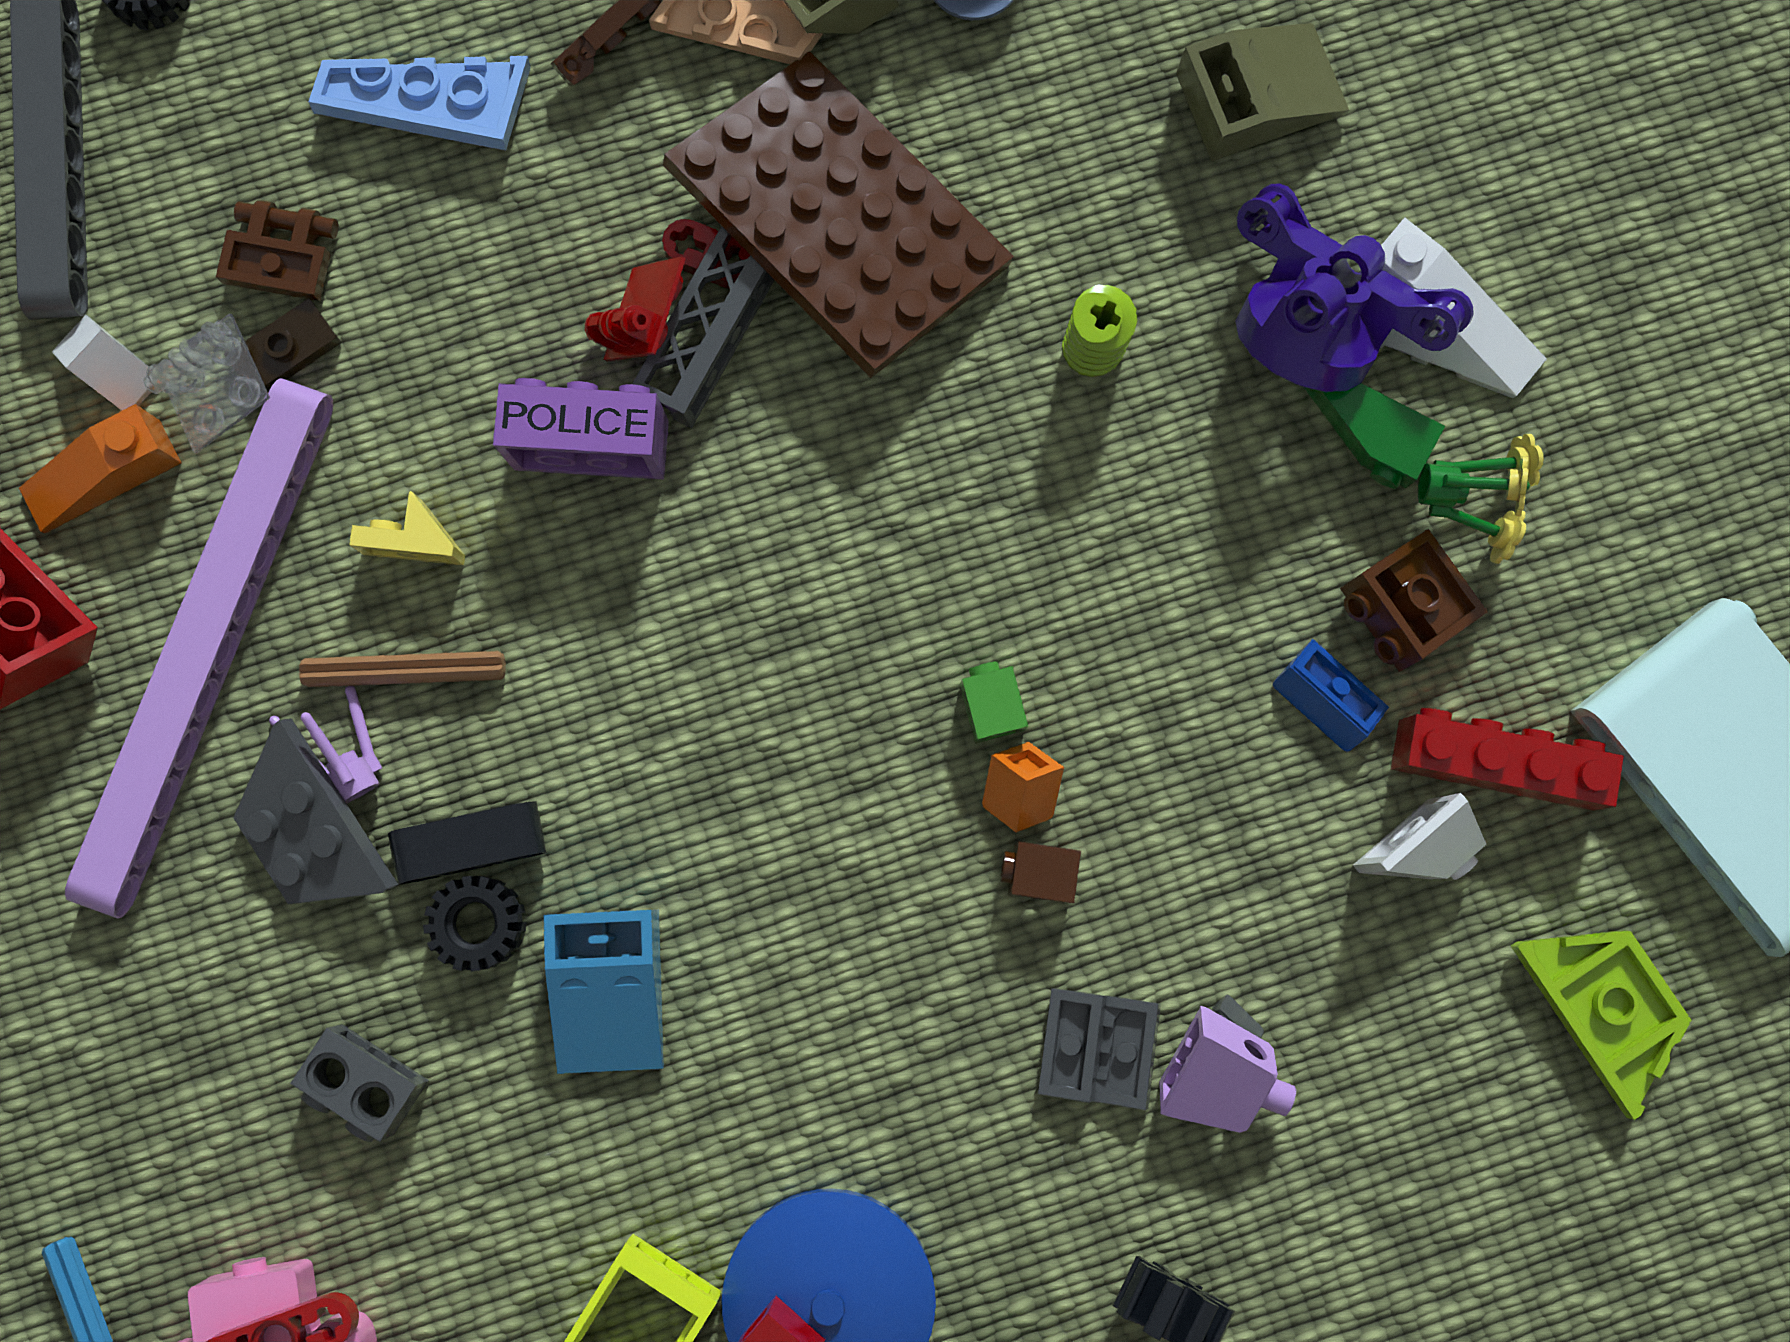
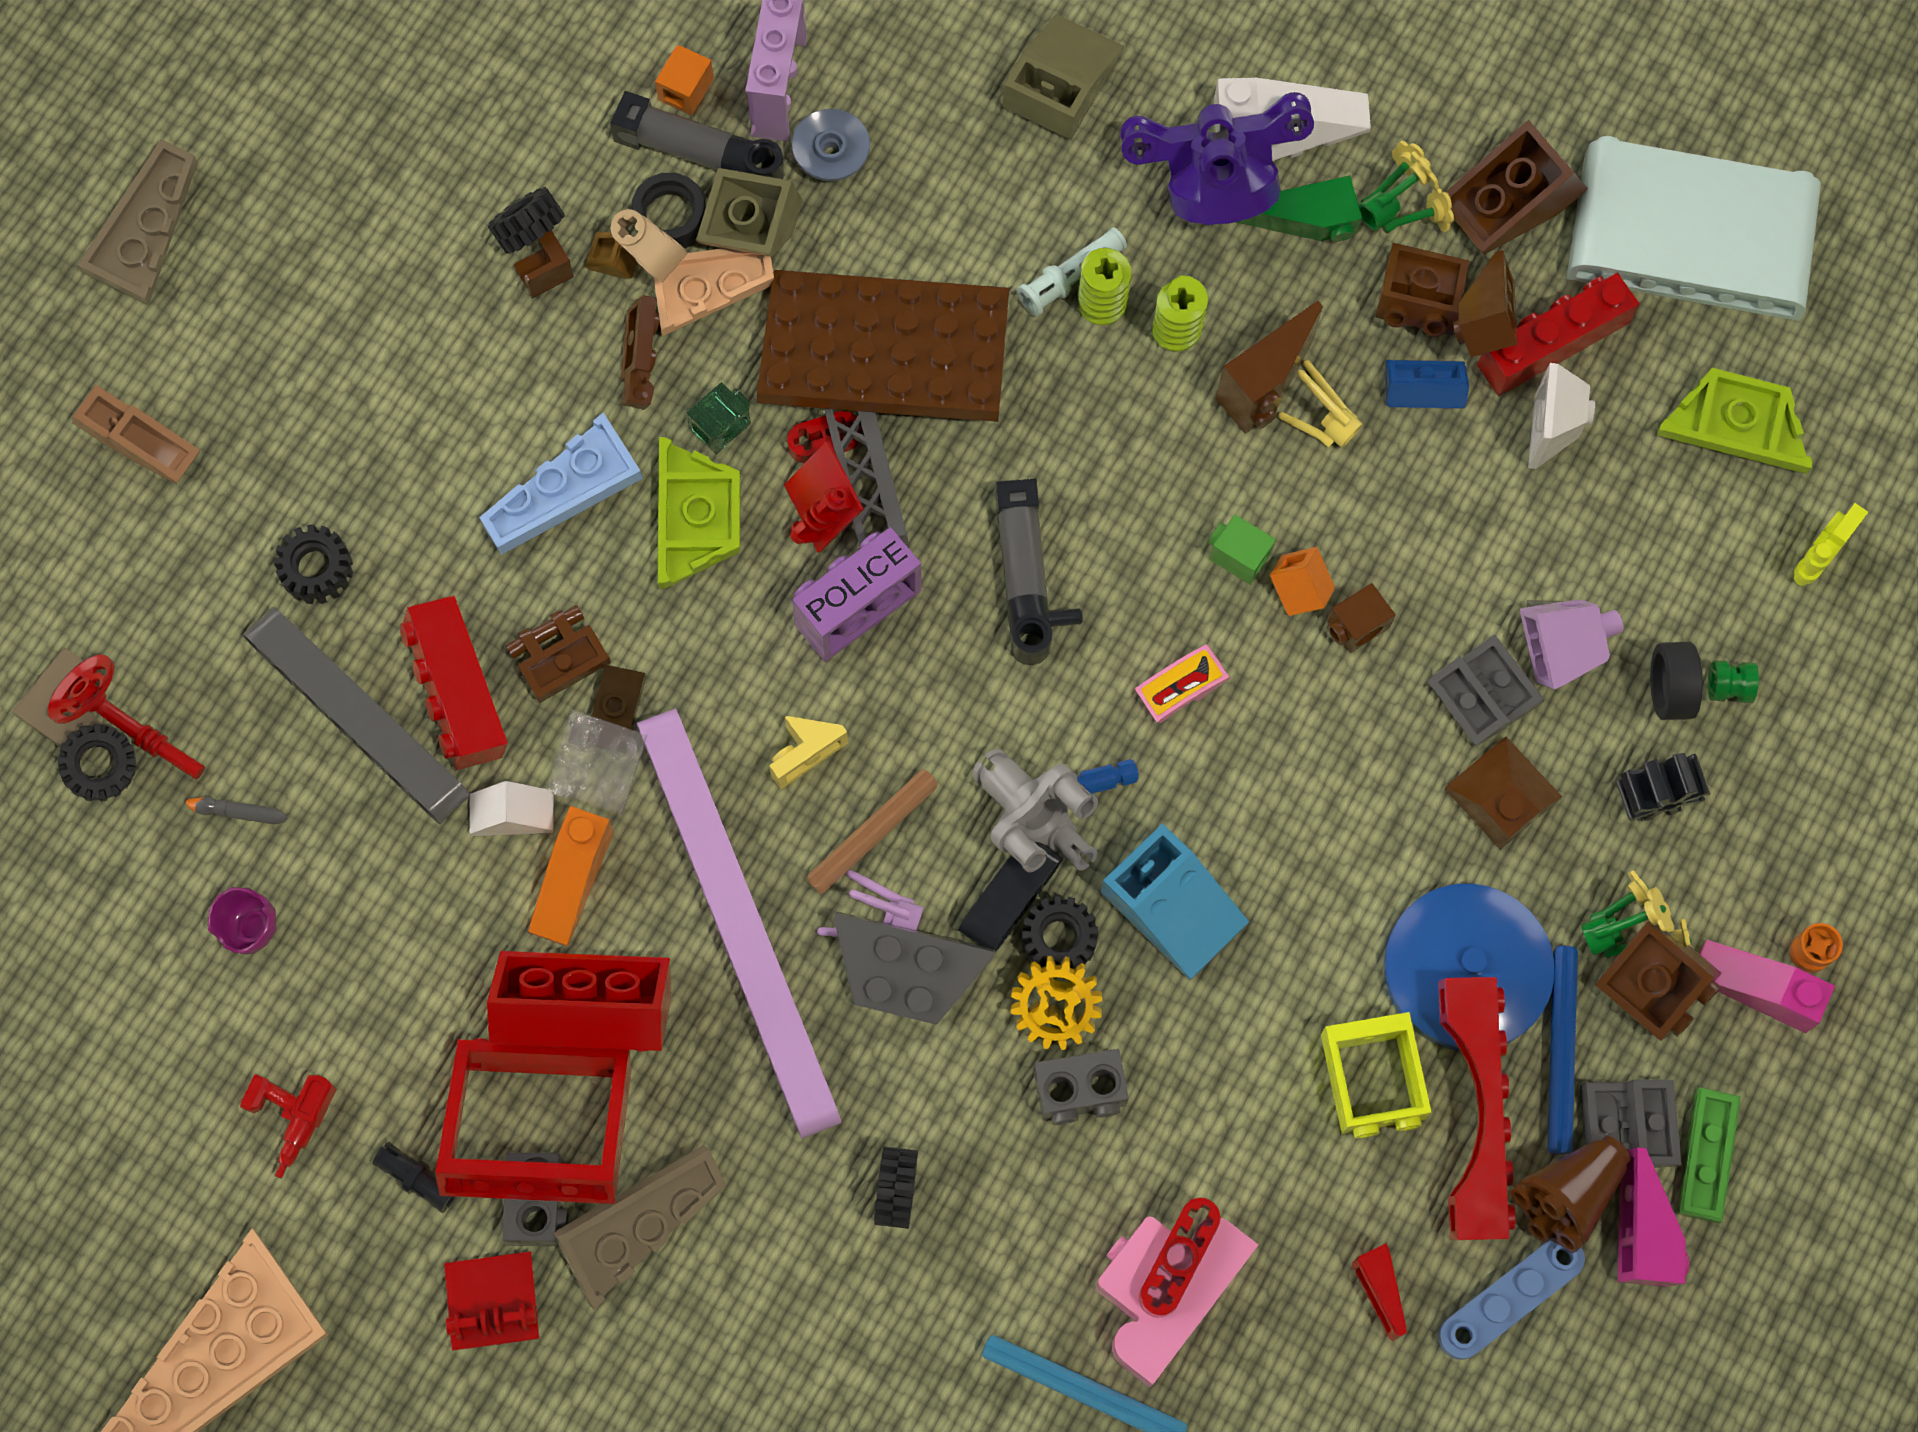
camera: 40 degrees left, 10 degrees down
(96, 1028) = (895, 1187): none -> black tyre
(152, 196) = (453, 683): none -> red brick
(407, 985) = (1042, 1013): none -> yellow gear
(520, 224) = (695, 513): none -> lime wing
(544, 787) = (1037, 811): none -> light grey wheel
(625, 150) = (719, 417): none -> clear green brick
(652, 805) = (1108, 777): none -> blue axle
(816, 483) = (1025, 573): none -> piece
(816, 784) = (1182, 683): none -> slope
(1023, 1164) = (1503, 792): none -> reddish brown slope
(1145, 421) = (1180, 314): none -> lime piece
(1150, 294) = (1055, 279): none -> light aqua pin
(1169, 552) = (1260, 376): none -> reddish brown slope
(1207, 662) = (1339, 423): none -> light yellow plant
(1289, 1214) = (1676, 680): none -> black tyre
(1352, 1264) = (1730, 681): none -> green wheel
(1455, 681) = (1488, 310): none -> reddish brown slope
(1578, 1218) = (1828, 544): none -> neon yellow plate
(1599, 579) = (1513, 190): none -> reddish brown slope

